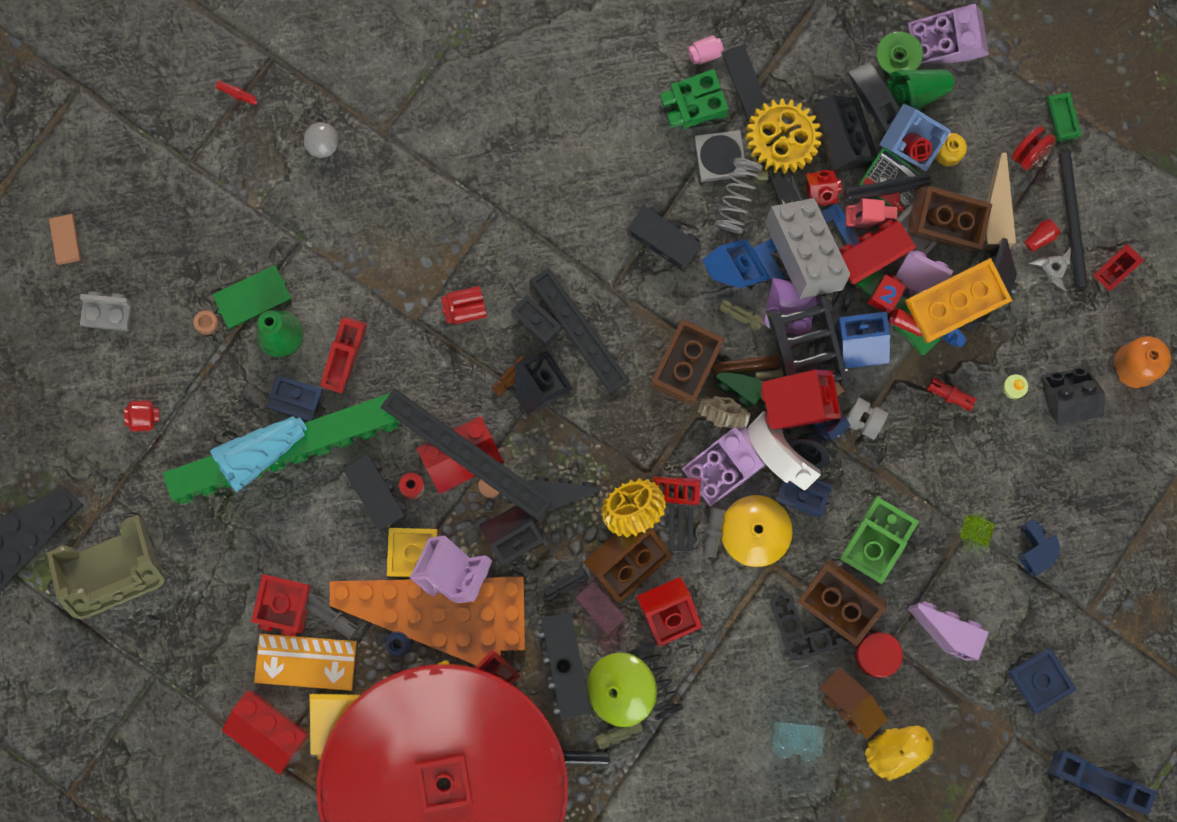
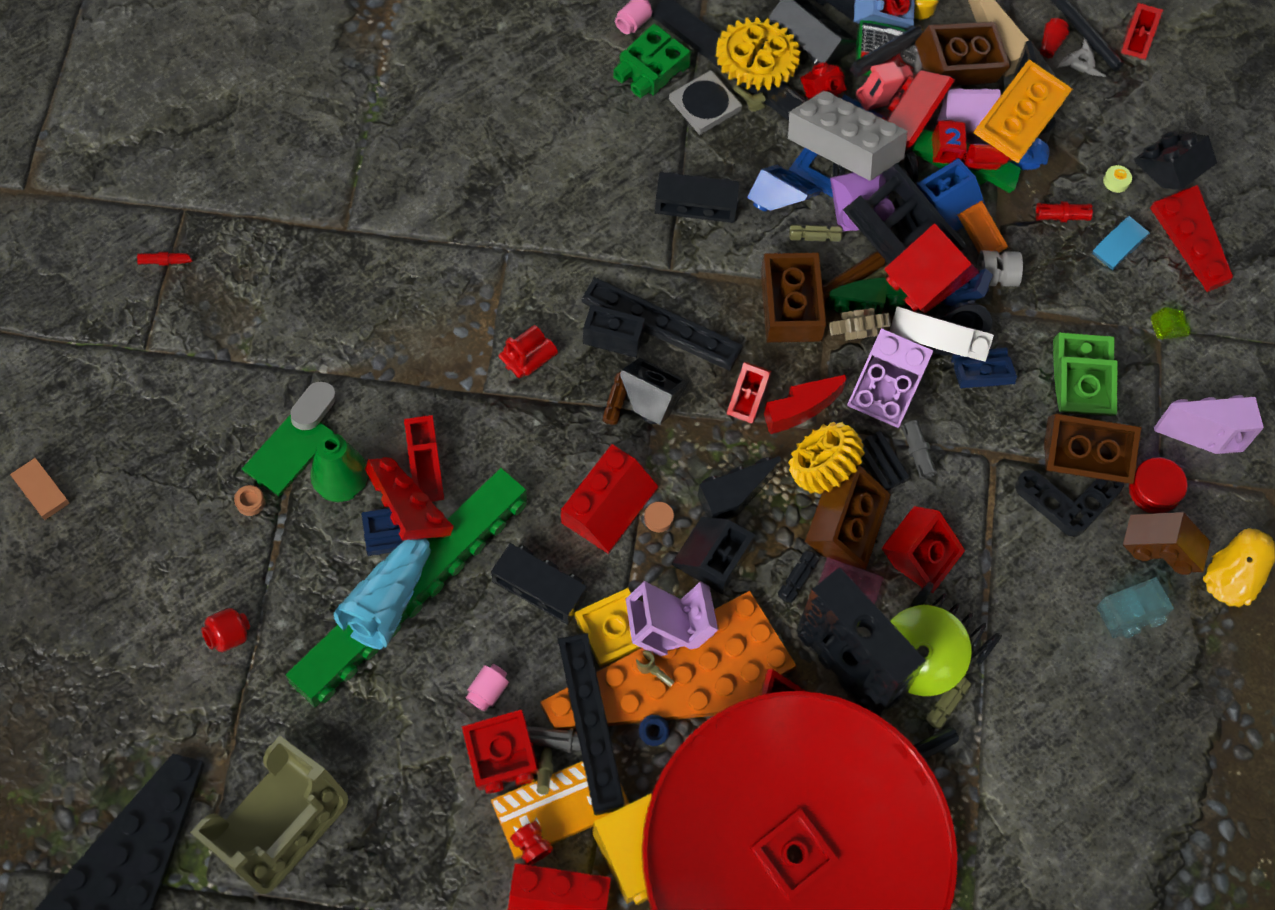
camera: 30 degrees left, 15 degrees down
(106, 311) = (126, 540): light grey bracket -> none
(267, 681) = (531, 843): none -> red wheel
(285, 270) = (312, 405): none -> light grey tile
(298, 552) = (487, 687): none -> bright pink brick
(305, 633) = (545, 771): none -> olive piece
(308, 391) = (409, 505): none -> red wing
(321, 140) = (282, 262): light grey hair -> none
(353, 618) = (591, 724): none -> black tile
(417, 491) = (576, 553): red brick -> none
(419, 602) = (652, 668): none -> olive hand
(466, 454) = (620, 486): black tile -> none
(609, 424) = (749, 392): none -> red slope
(648, 452) = (802, 403): none -> red slope
(696, 483) = (878, 412): red slope -> none
(725, 224) = (751, 151): light grey piece -> none
(739, 533) = (958, 443): yellow dish -> none
(873, 378) = (982, 228): none -> orange tile
(980, 443) = (1120, 242): none -> dark azure slope
(1044, 550) = (1245, 308): dark blue brick -> none
(1046, 463) = (1193, 233): none -> red wing
(1136, 364) = (1219, 99): orange cylinder -> none

